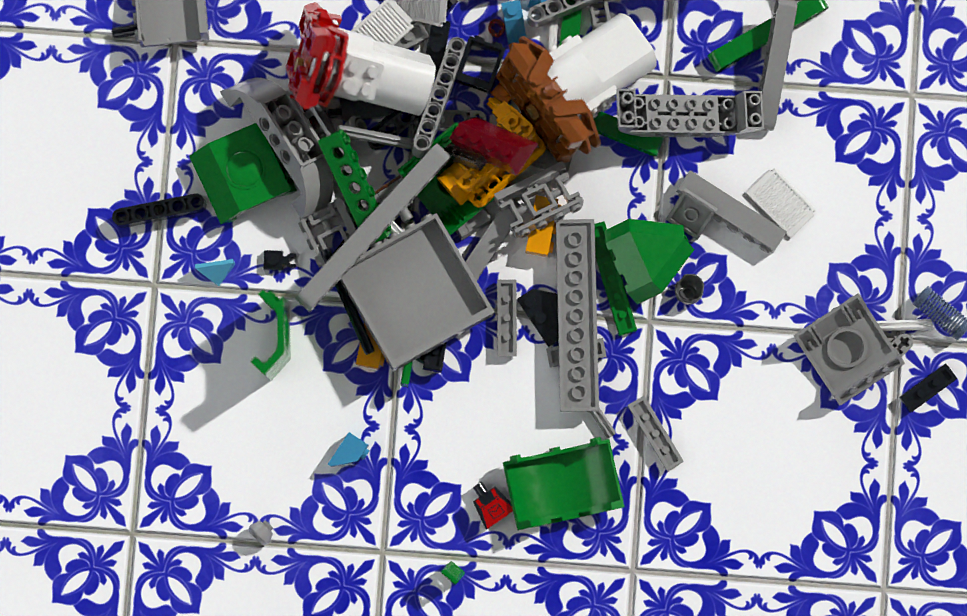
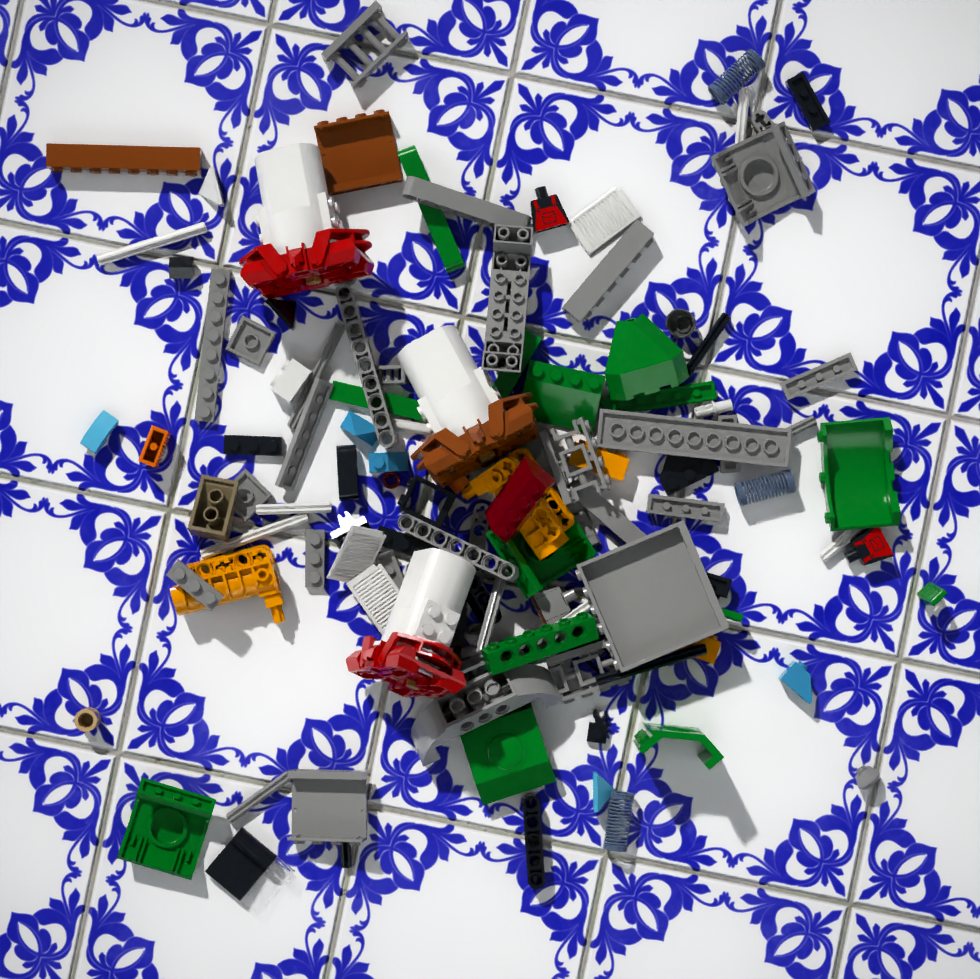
camera: 80 degrees left, 5 degrees up
(180, 286) = (611, 844): none -> sand blue piece
(373, 227) = (585, 630): light grey beam -> none
(466, 157) = (526, 529): clear smoke piece -> none
(492, 476) = (839, 543): none -> white axle
(543, 417) = (789, 484): none -> sand blue piece
(603, 182) = (563, 393): none -> green slope
(609, 333) = (713, 408): none -> white axle
(672, 318) = (707, 343): none -> black axle
(692, 213) = (605, 310): light grey tile -> none
(781, 144) = (547, 212): none -> torso

